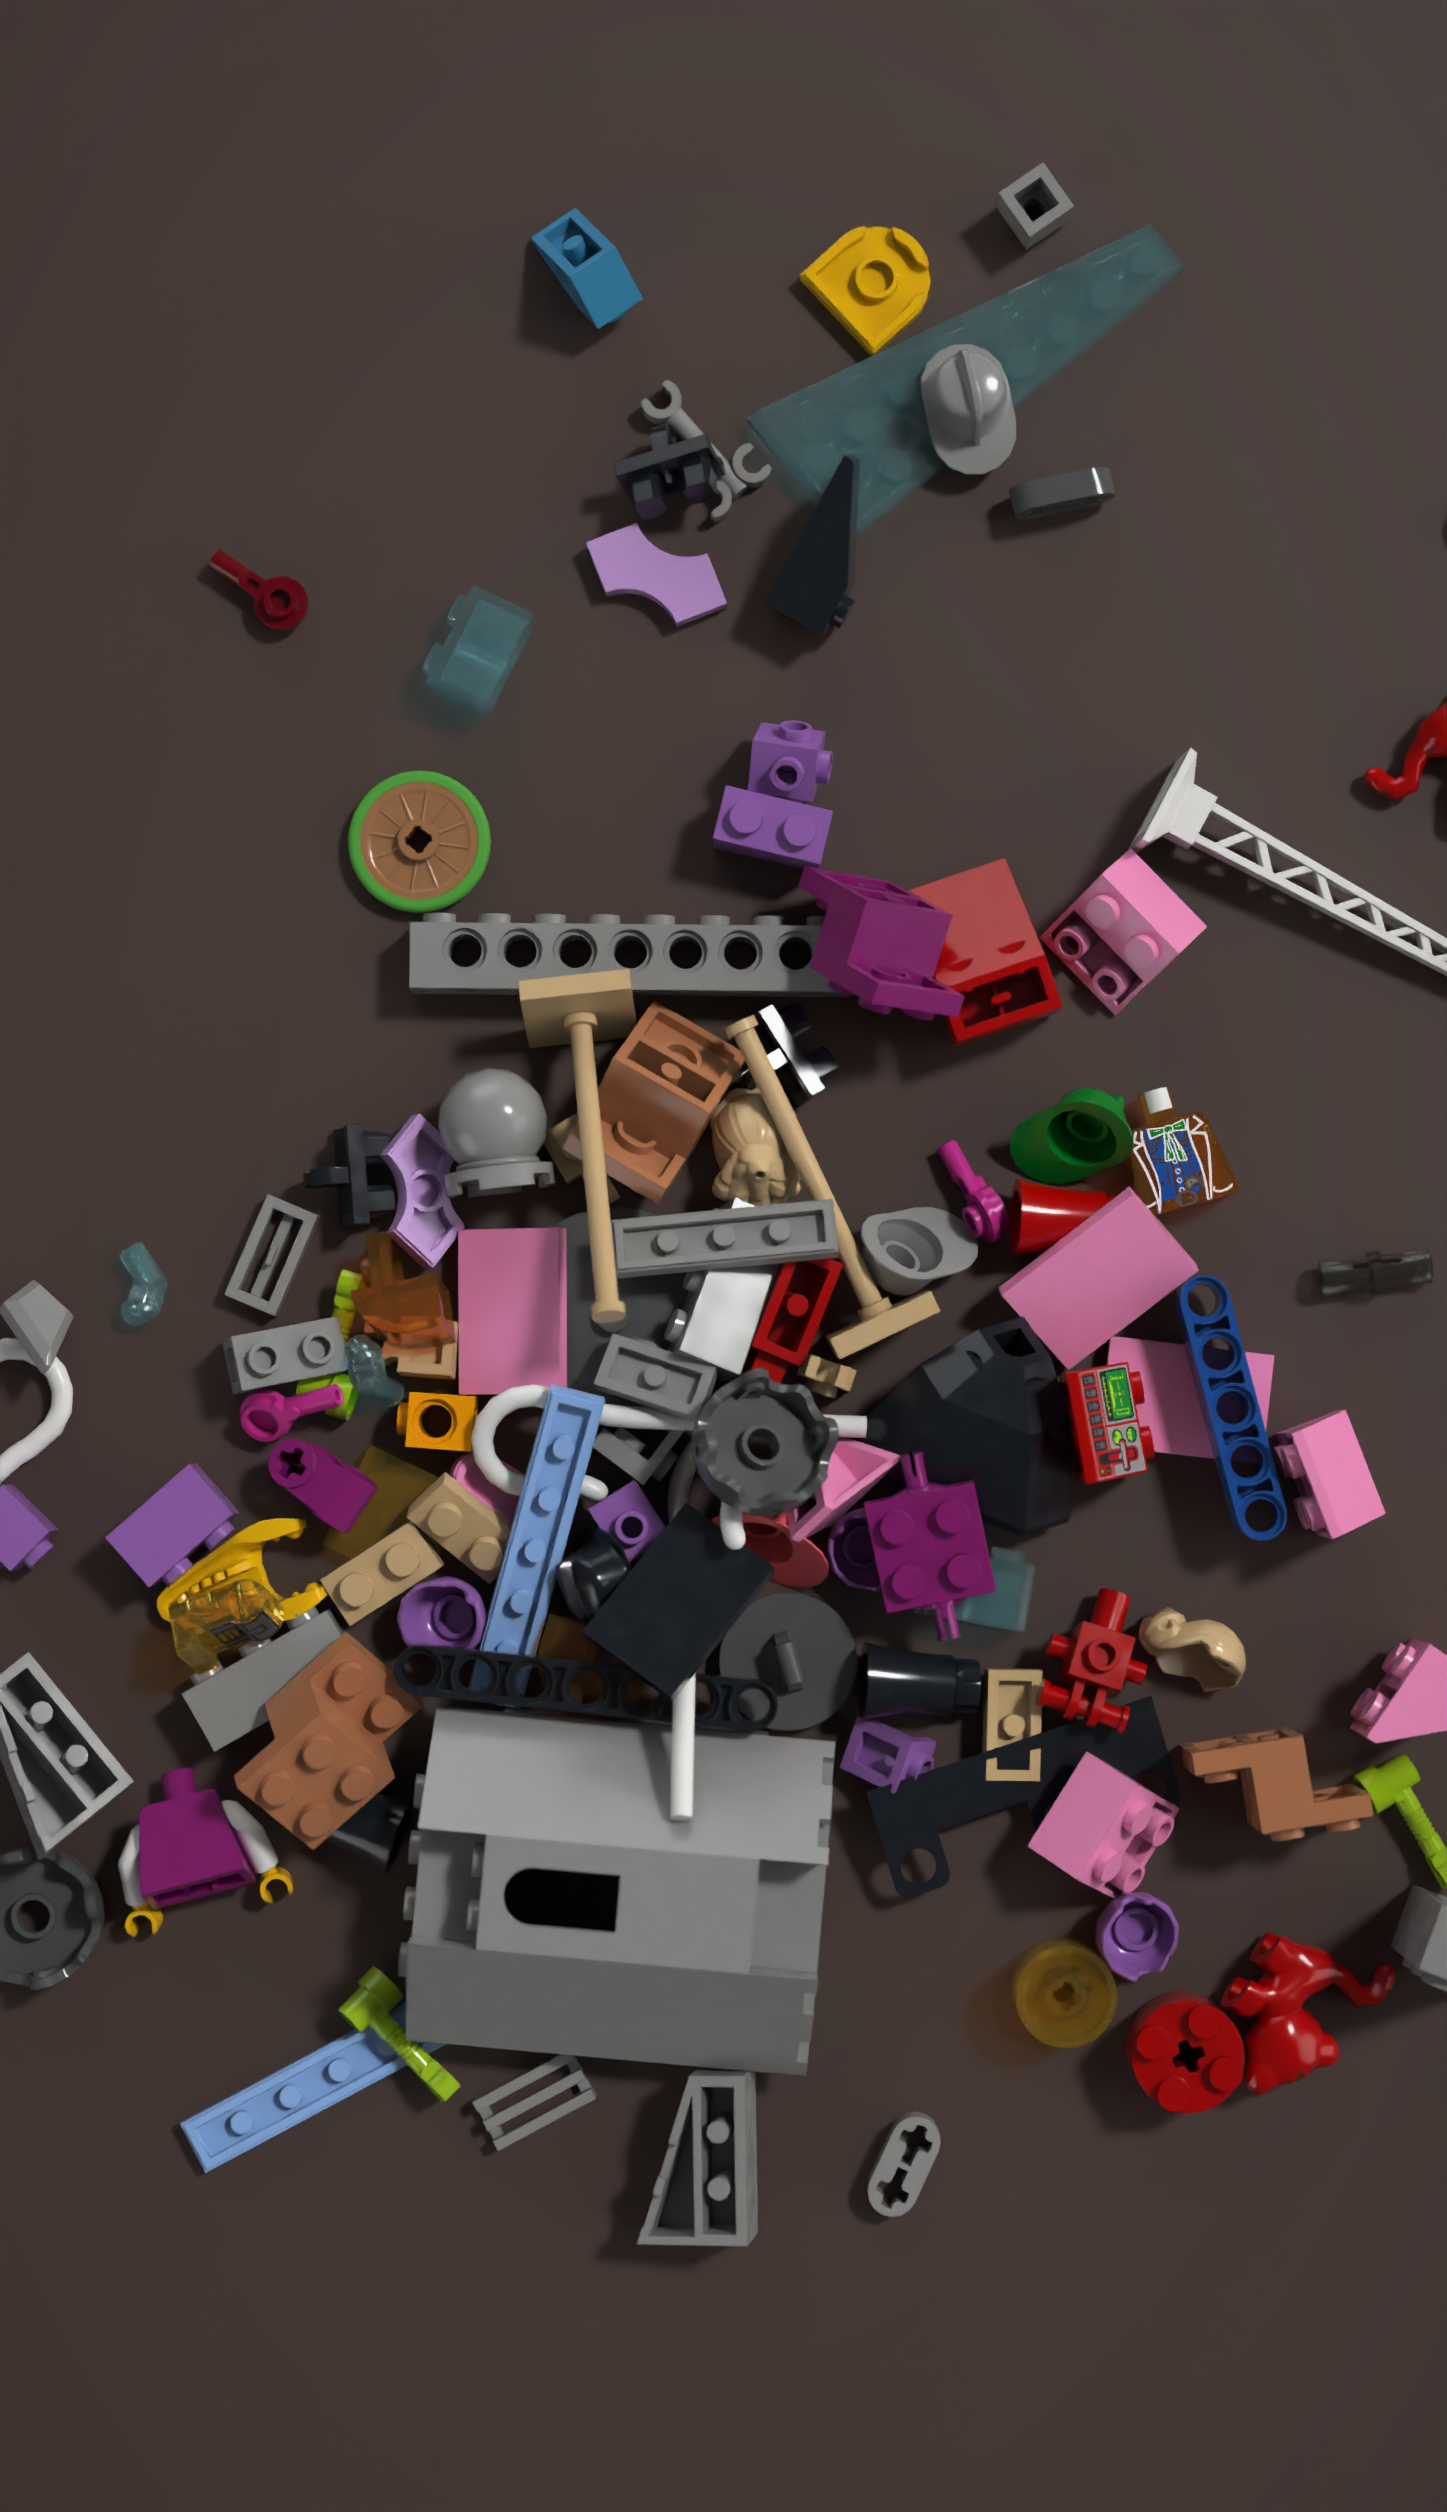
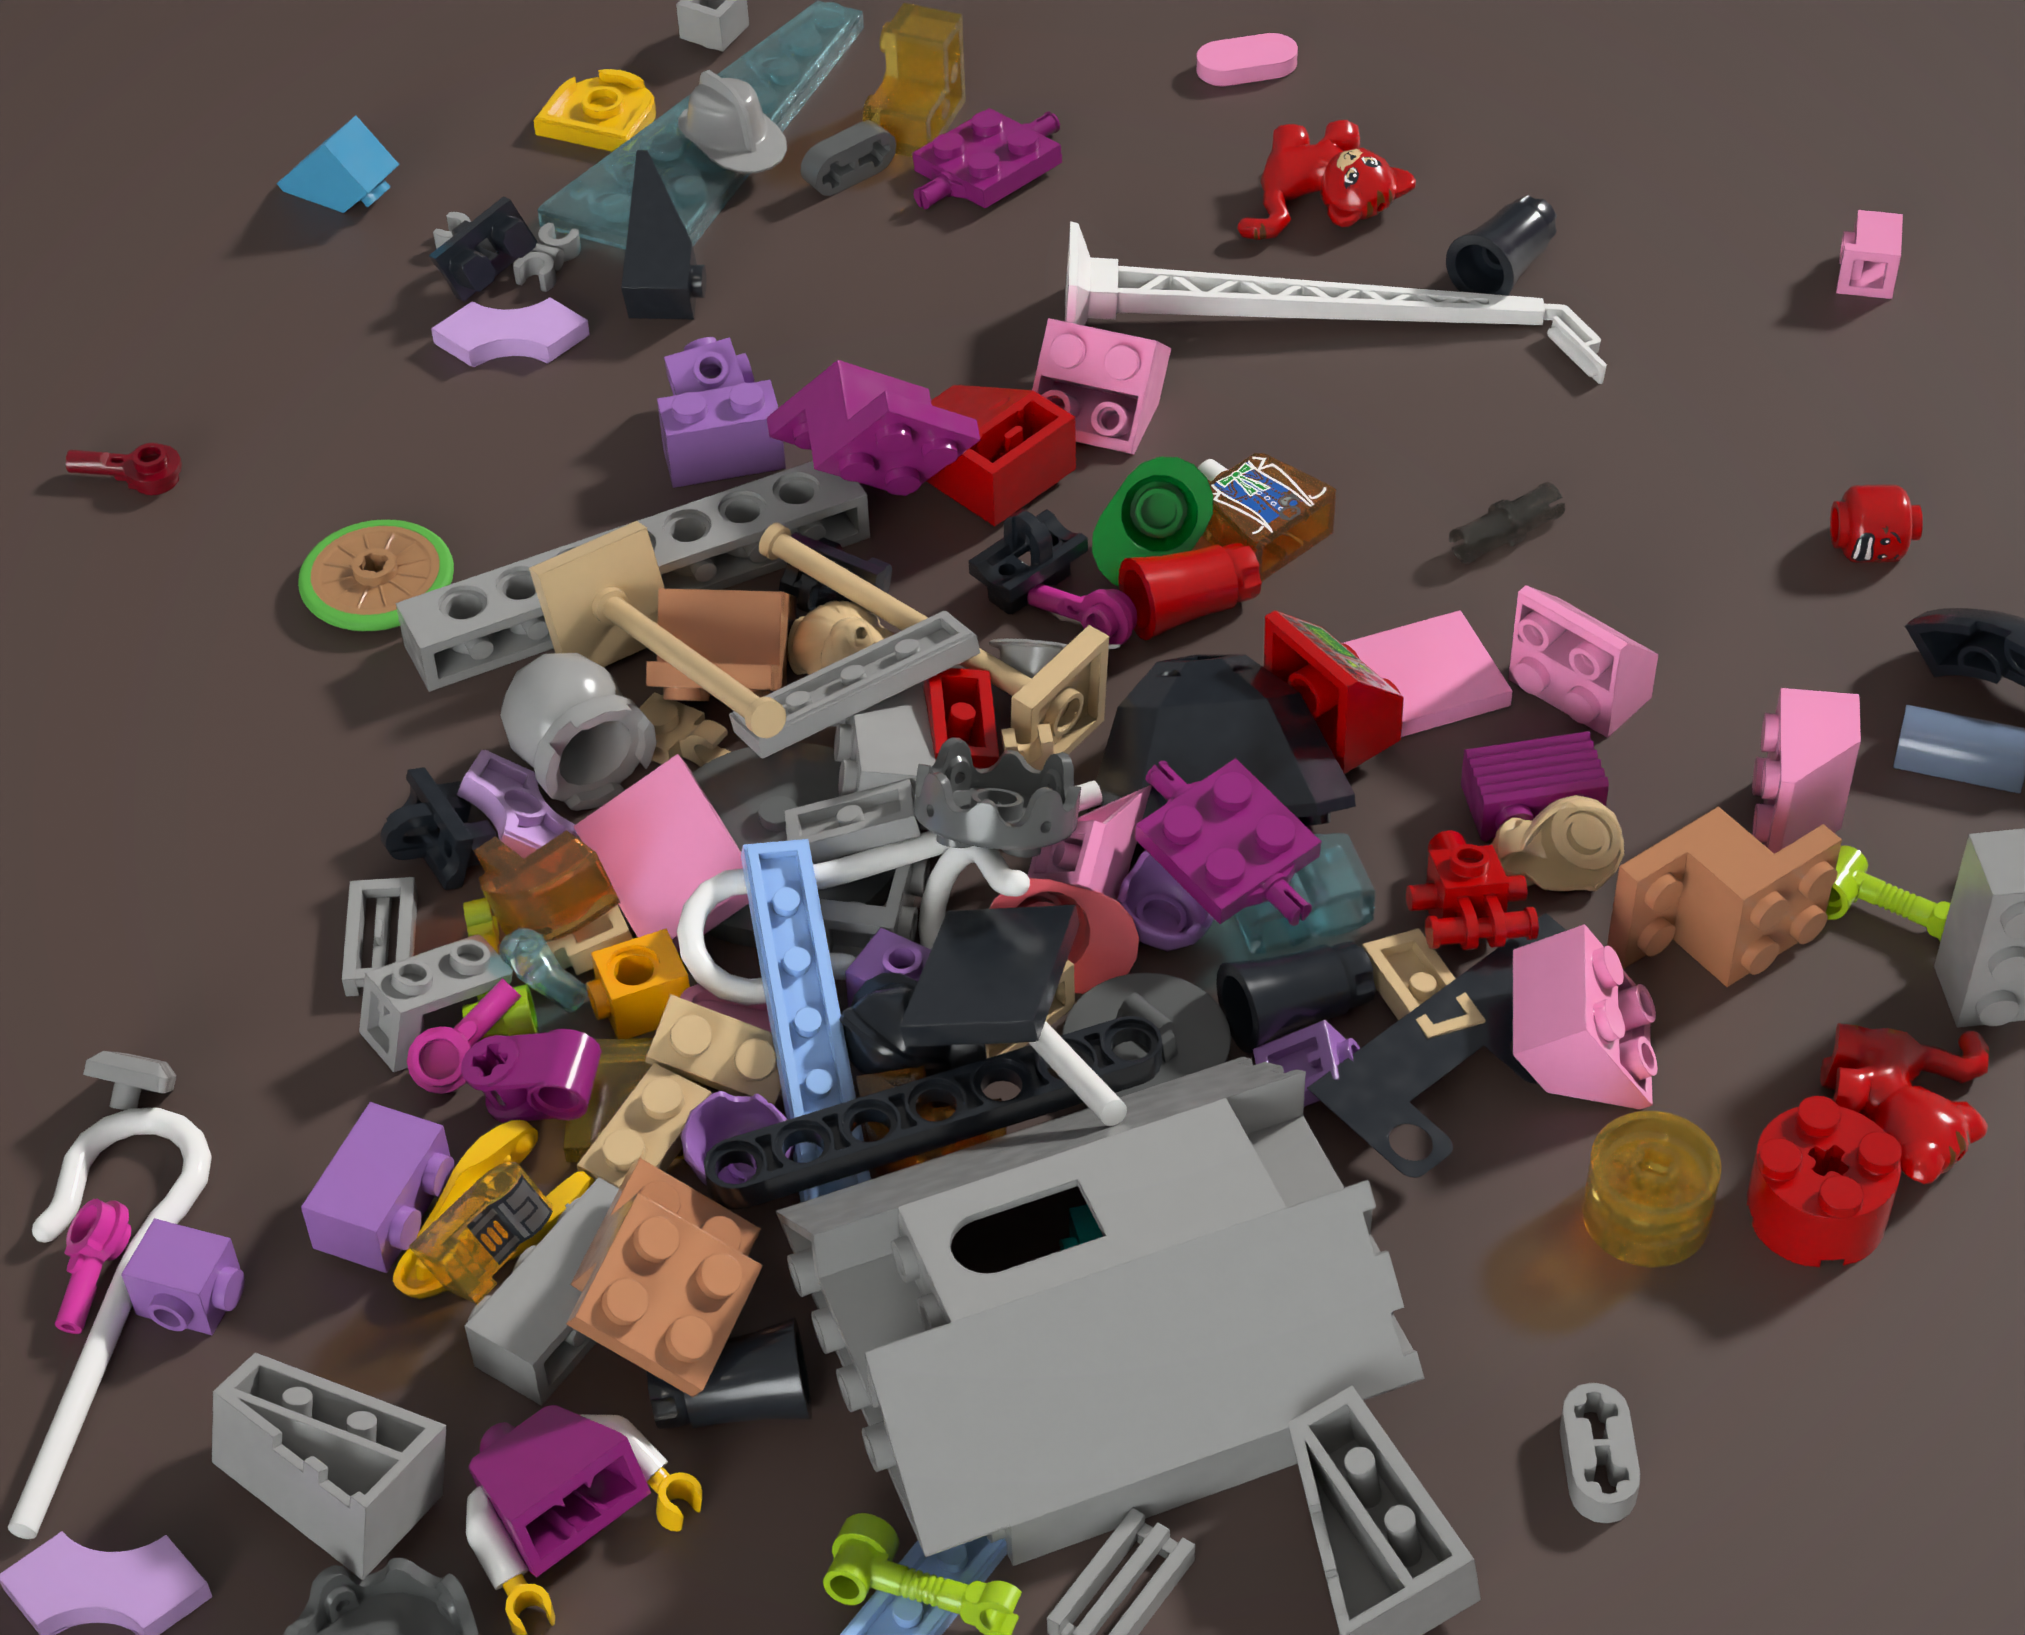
camera: 30 degrees left, 40 degrees down
(147, 1288) = (247, 1006): clear light blue arm -> none
(479, 650) = (365, 424): clear light blue brick -> none
(973, 1118) = (1050, 549): none -> black hips
(1098, 1278) = (1244, 576): bright pink tile -> none
(1136, 1935) = (1693, 1092): medium lavender hair -> none
(1177, 430) = (921, 78): none -> clear yellow brick
(1192, 552) = (986, 158): none -> magenta plate
(1215, 1576) = (1528, 776): none -> magenta brick
(1250, 1427) = (1448, 641): blue beam -> none

